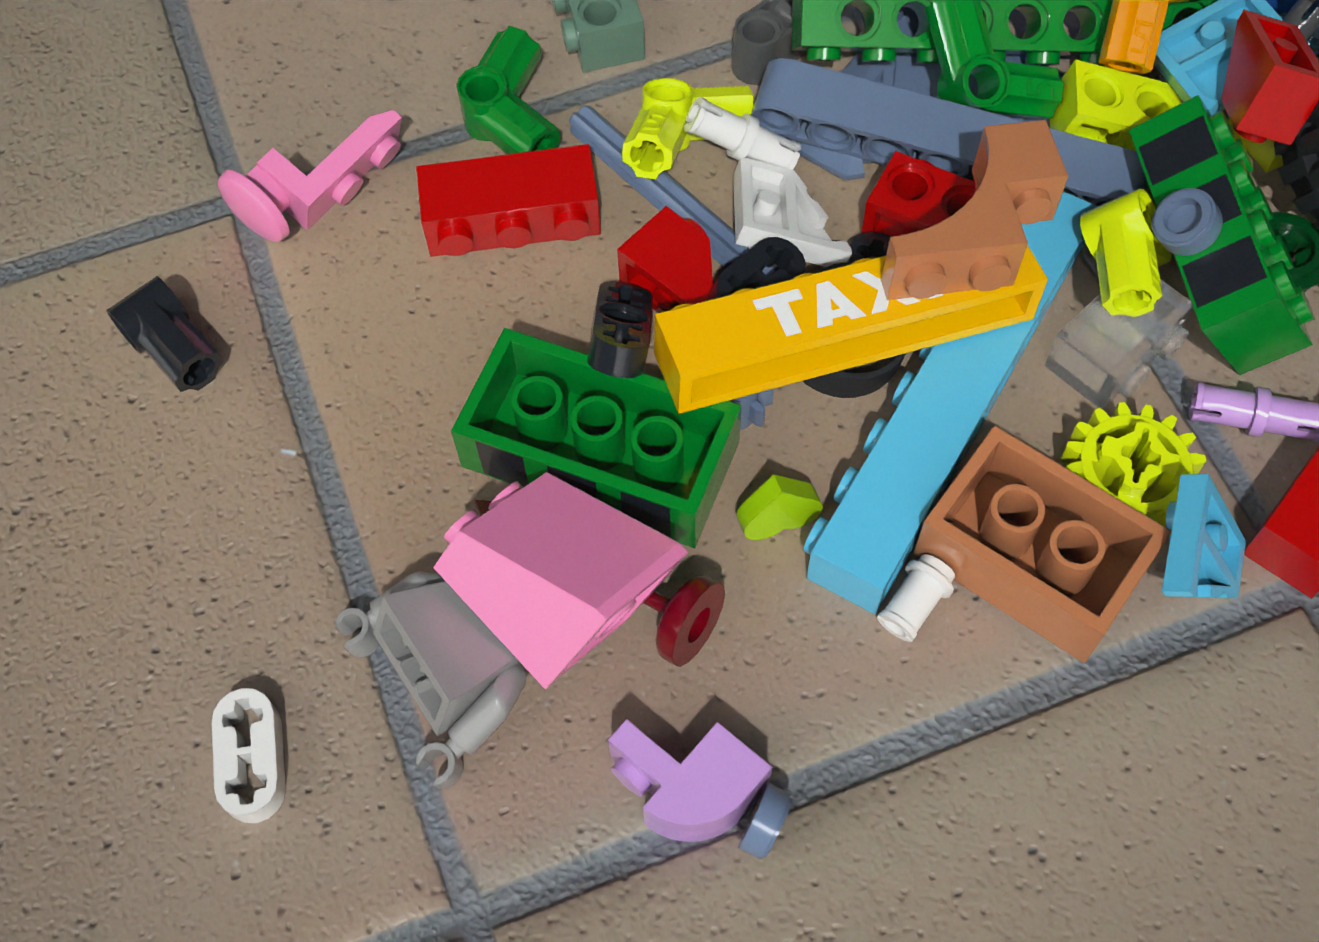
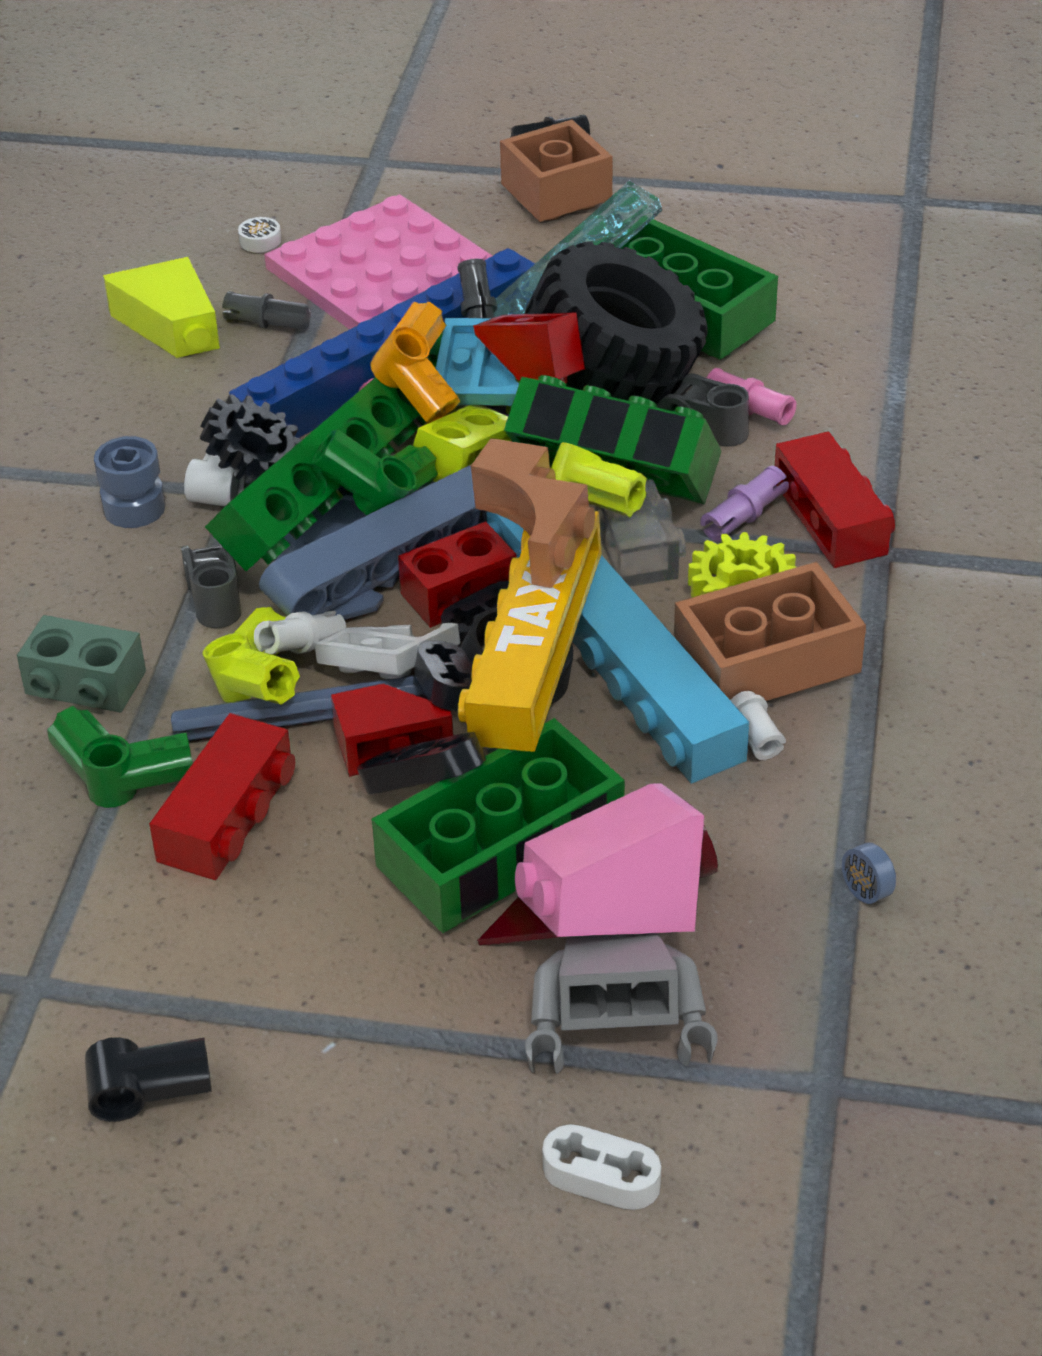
camera: 60 degrees left, 20 degrees down
(280, 186) = (85, 922): bright pink piece -> none
(699, 795) = (815, 900): lavender brick -> none
(778, 506) = (632, 759): lime tile -> none
(1187, 221) = (608, 433): sand blue tile -> none
(1204, 543) = (840, 563): medium azure wing -> none

